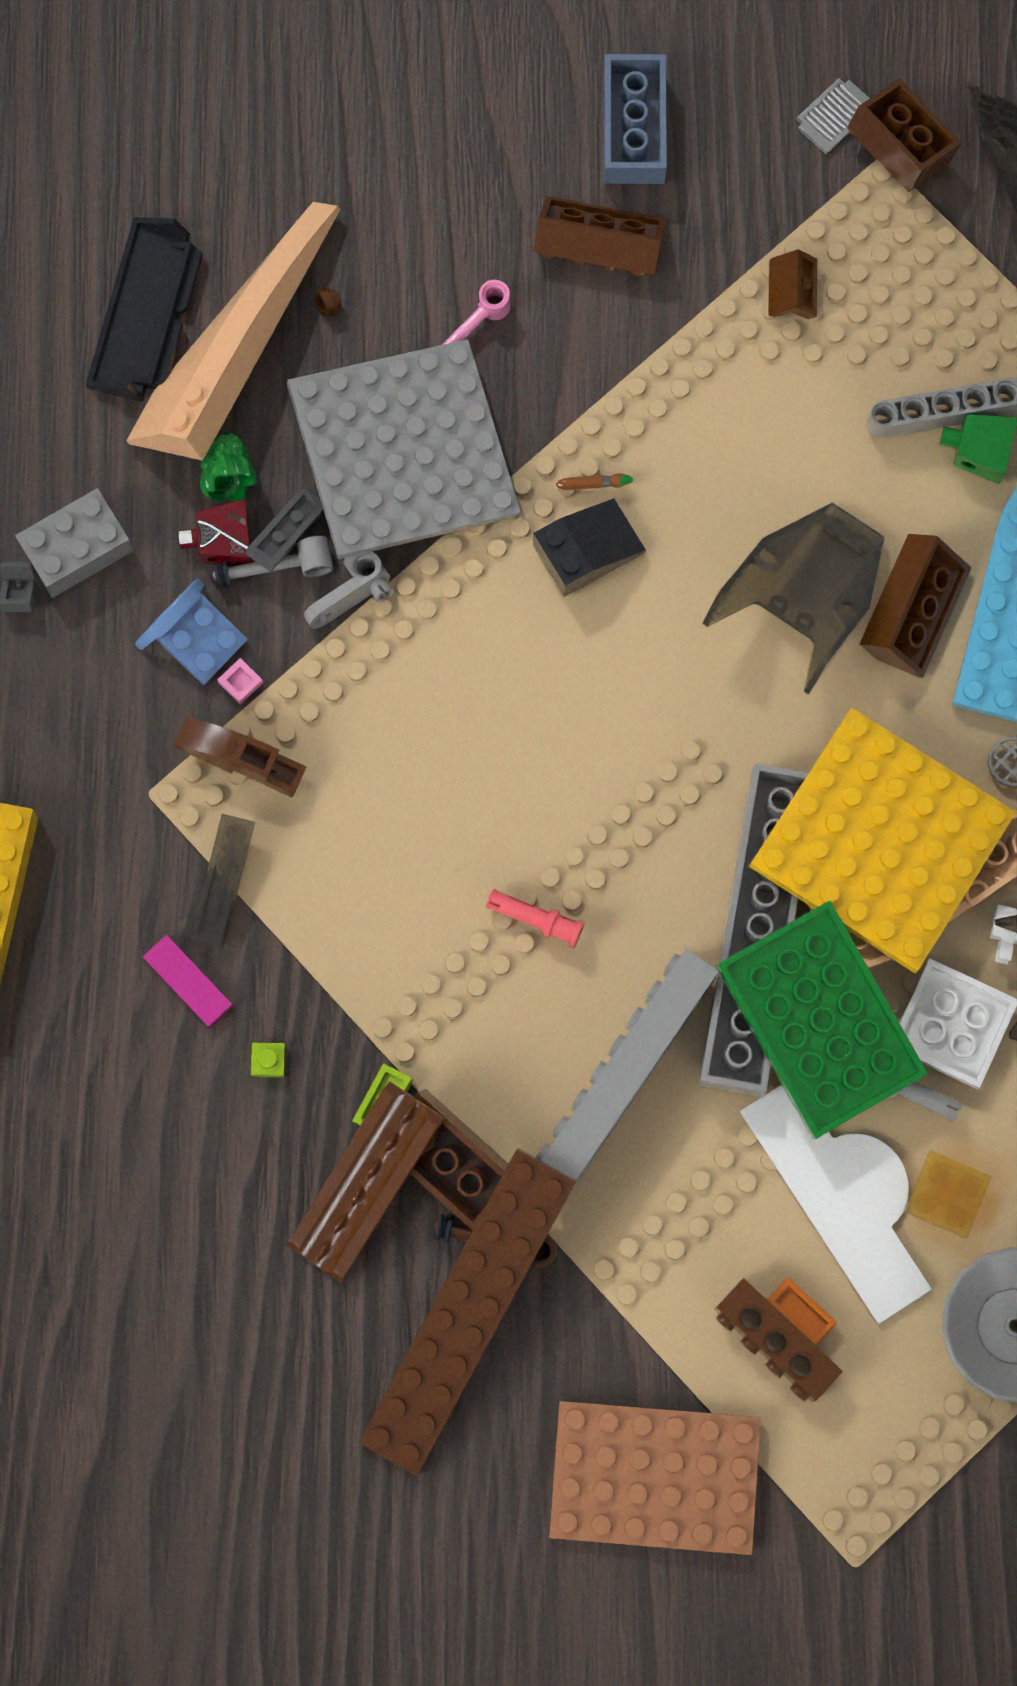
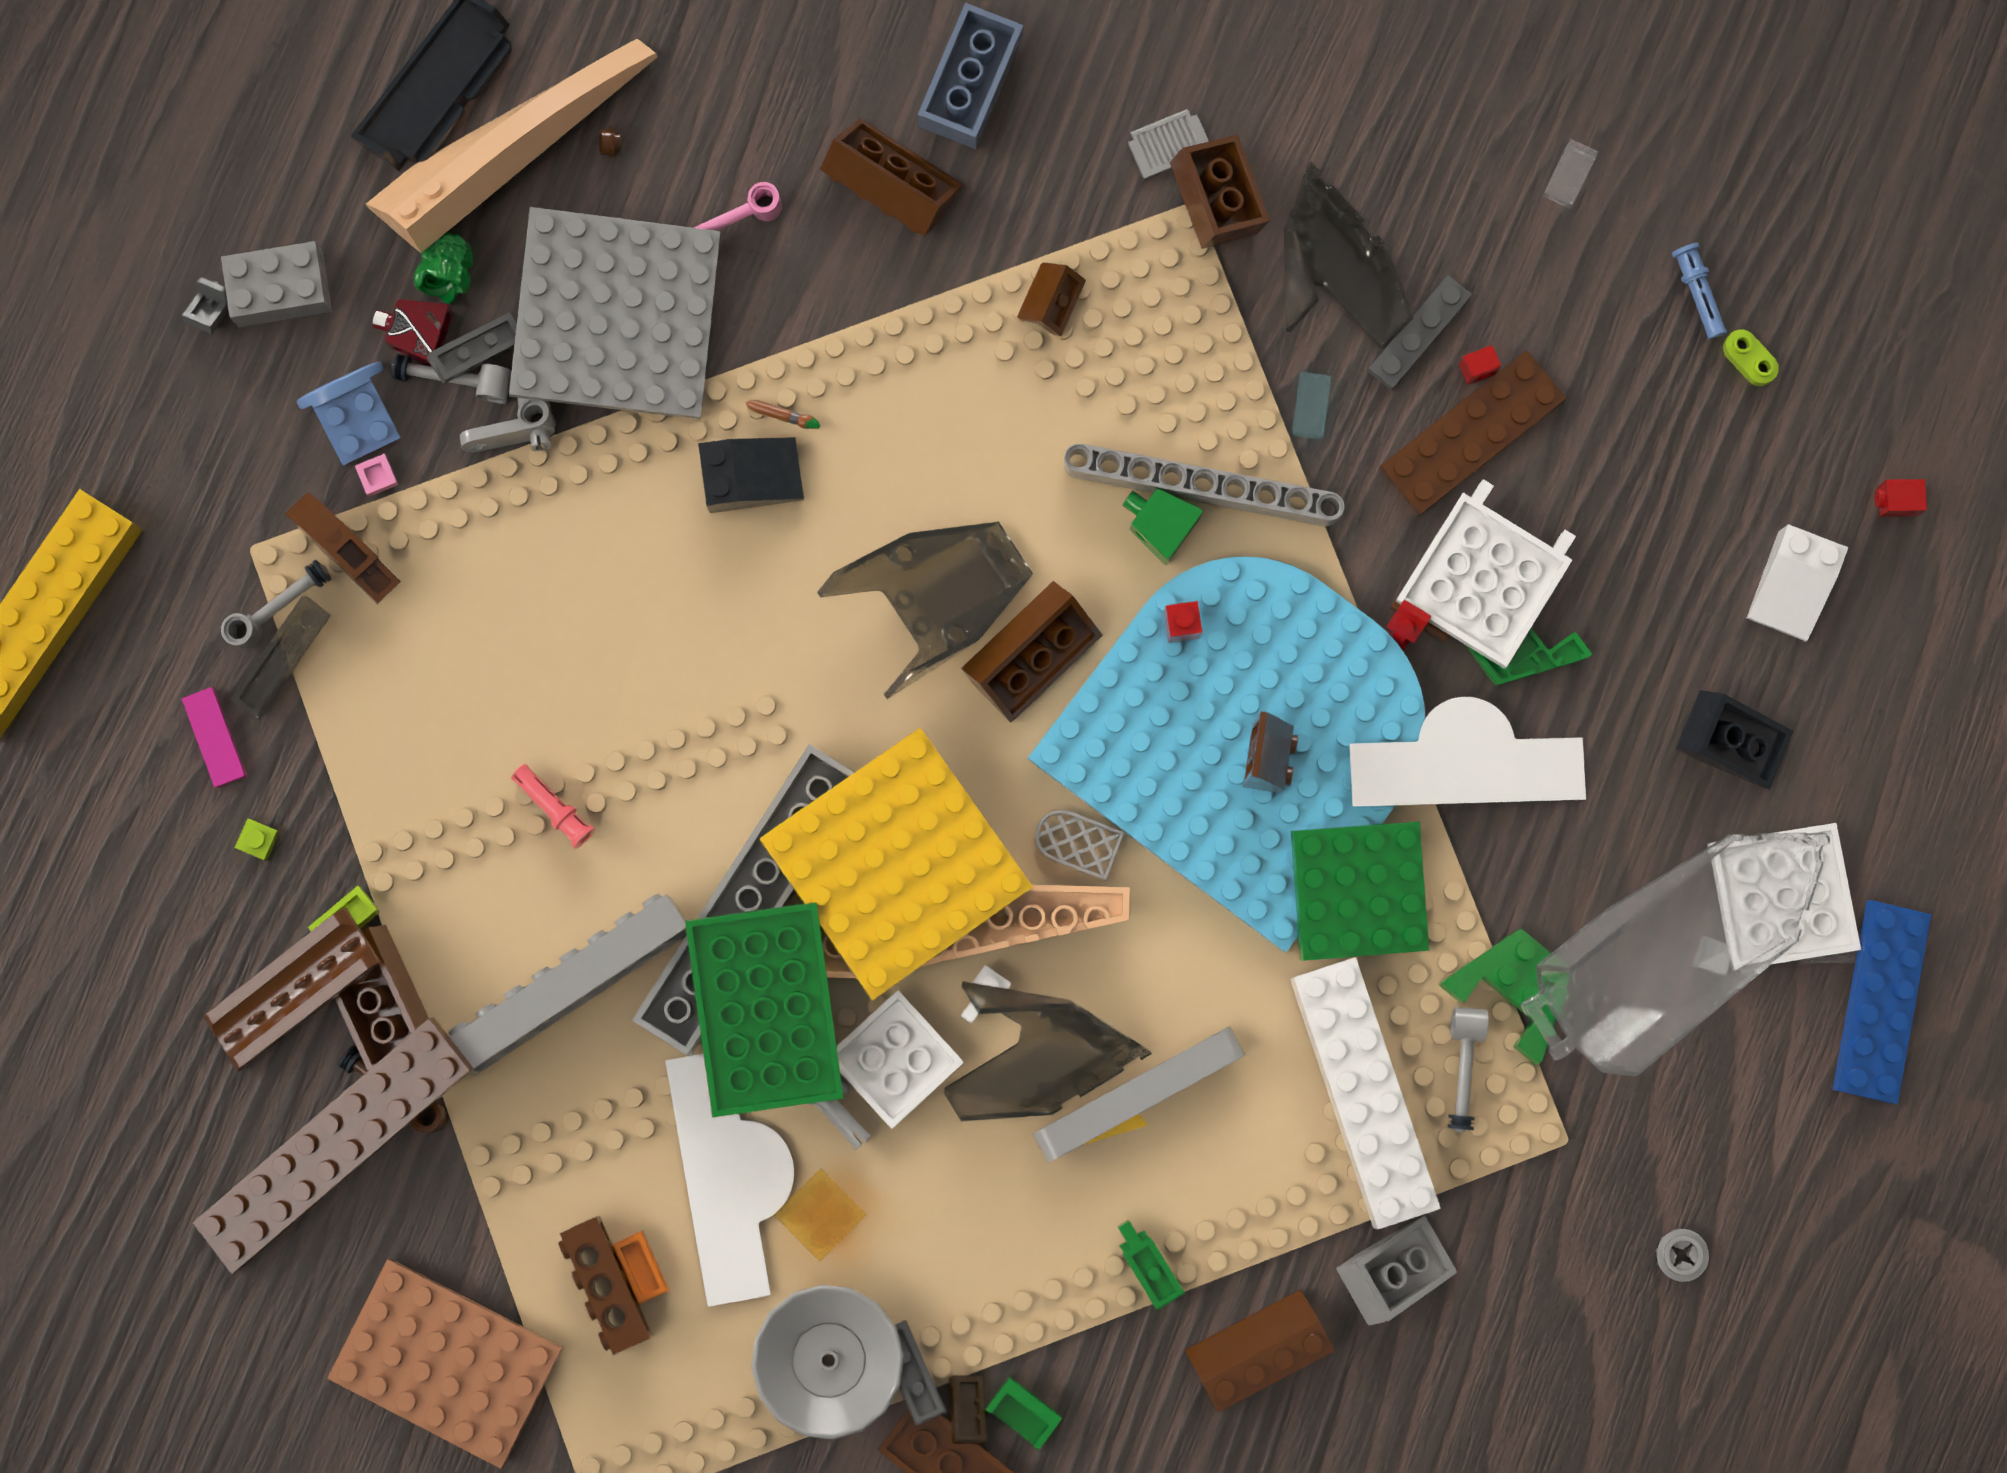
camera: 20 degrees right, 5 degrees up
(224, 791) = (315, 575): none -> light grey piece

